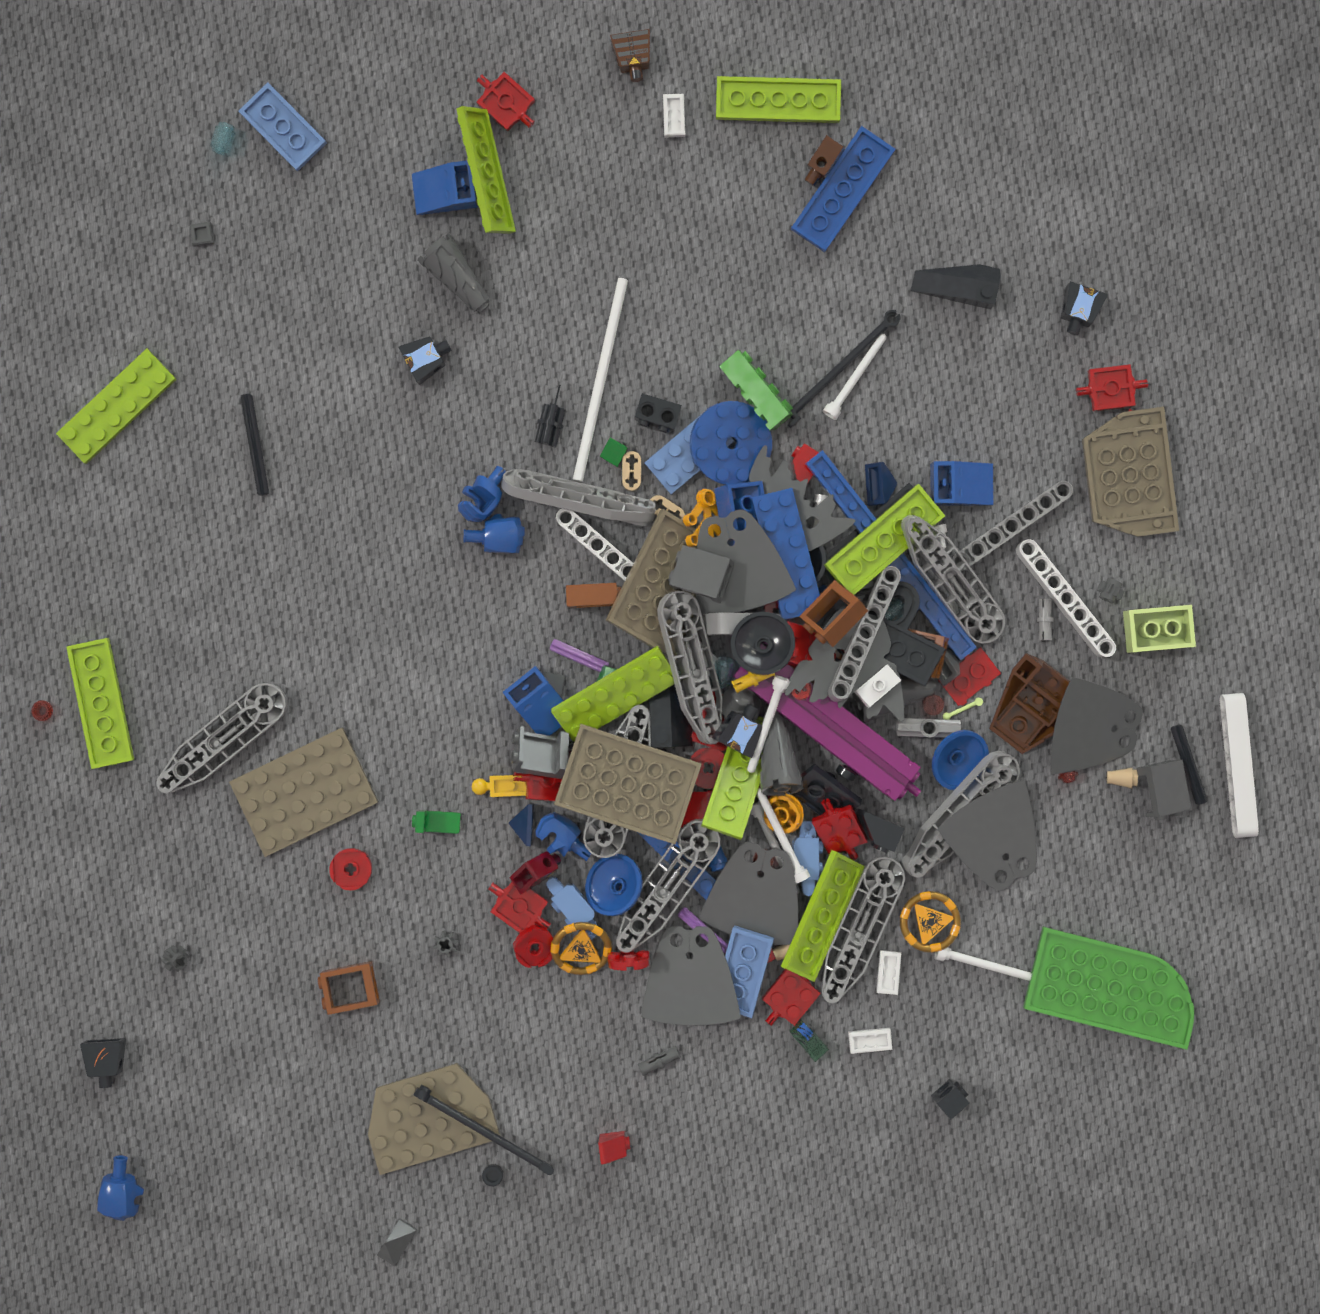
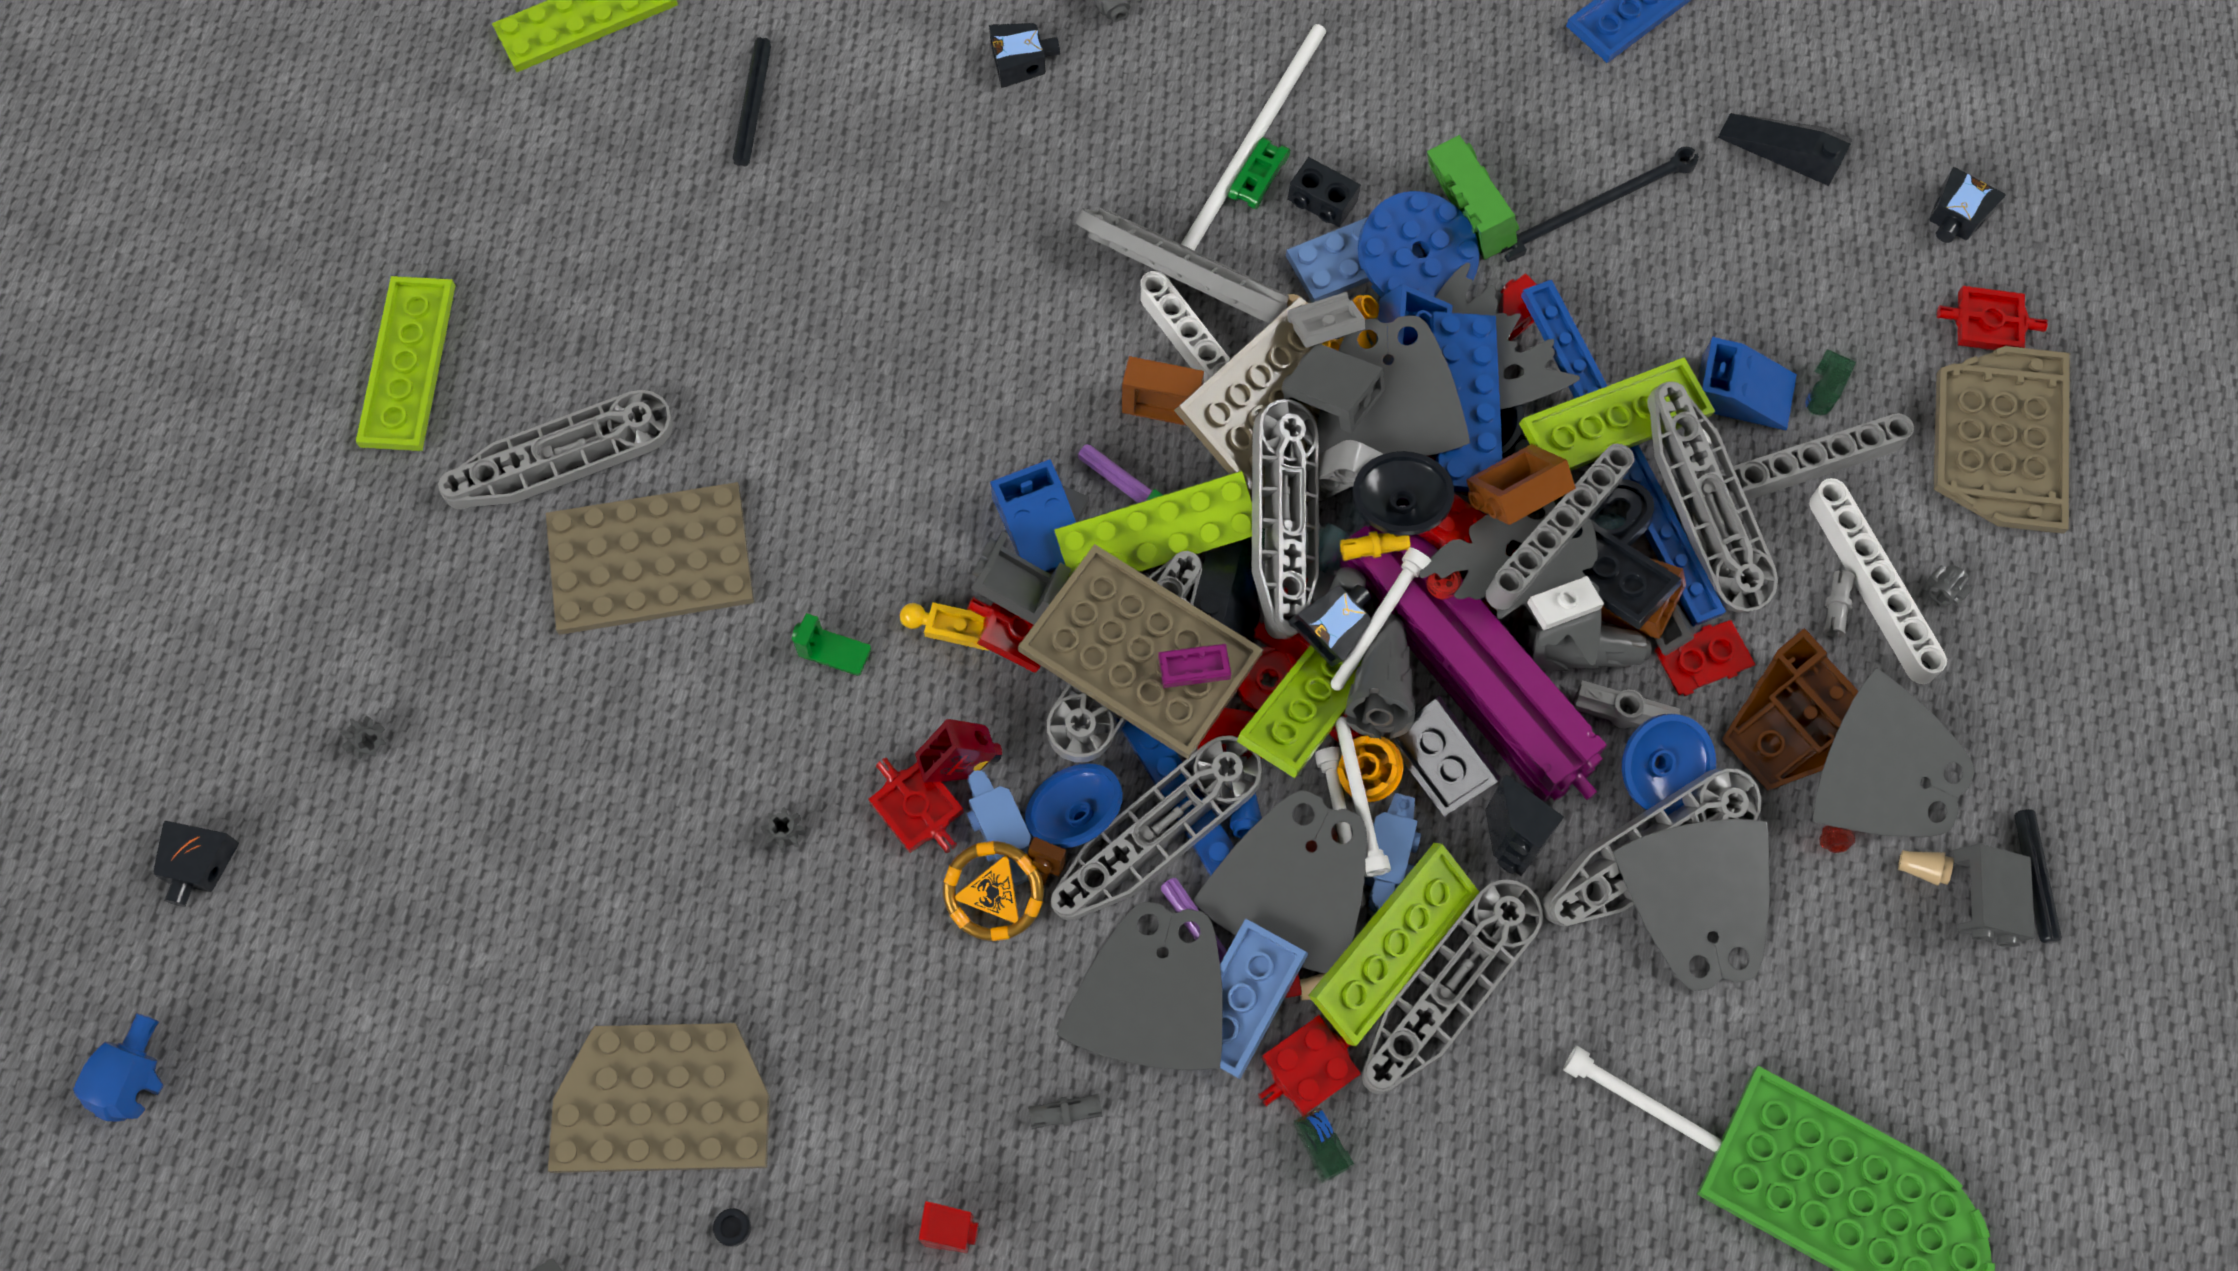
camera: 15 degrees right, 20 degrees down
(36, 710) = (318, 345): clear red plate -> none
(342, 877) = (667, 668): red plate -> none
(369, 981) = (643, 864): dark orange window -> none
(423, 1093) = (666, 1051): black hinge -> none
(485, 495) = (1044, 236): blue piece -> none
(499, 535) = (1052, 283): blue piece -> none
(523, 824) = (962, 685): dark blue slope -> none
(531, 936) = (901, 862): red plate -> none
(550, 423) = (1168, 171): black piece -> none
(566, 832) = (1021, 714): blue piece -> none
(607, 924) = (1047, 858): none -> reddish brown plate
(611, 407) = (1259, 172): none -> green plate
(613, 452) = (1248, 226): green slope -> none
(622, 960) = (1063, 925): red plate -> none
(626, 471) = (1260, 256): tan beam -> none
(663, 789) = (1194, 665): none -> magenta plate
(685, 526) = (1326, 319): none -> light grey plate
(833, 409) = (1576, 249): white piece -> none
(839, 829) = (1454, 816): red plate -> none
(846, 772) = (1483, 741): black tile -> none
(870, 1040) = (1425, 1175): white plate -> none
(879, 483) = (1622, 356): dark blue slope -> none
(888, 972) = (1481, 1071): white plate -> none
(930, 921) = (1569, 1003): piece -> none
(933, 705) = (1641, 680): clear red tile -> none
(978, 701) = (1711, 697): yellowish green hinge -> none
(1015, 466) = (1835, 374): none -> clear green leg
(1159, 628) = (2019, 655): yellowish green brick -> none
(1239, 765) = (2121, 899): white beam -> none

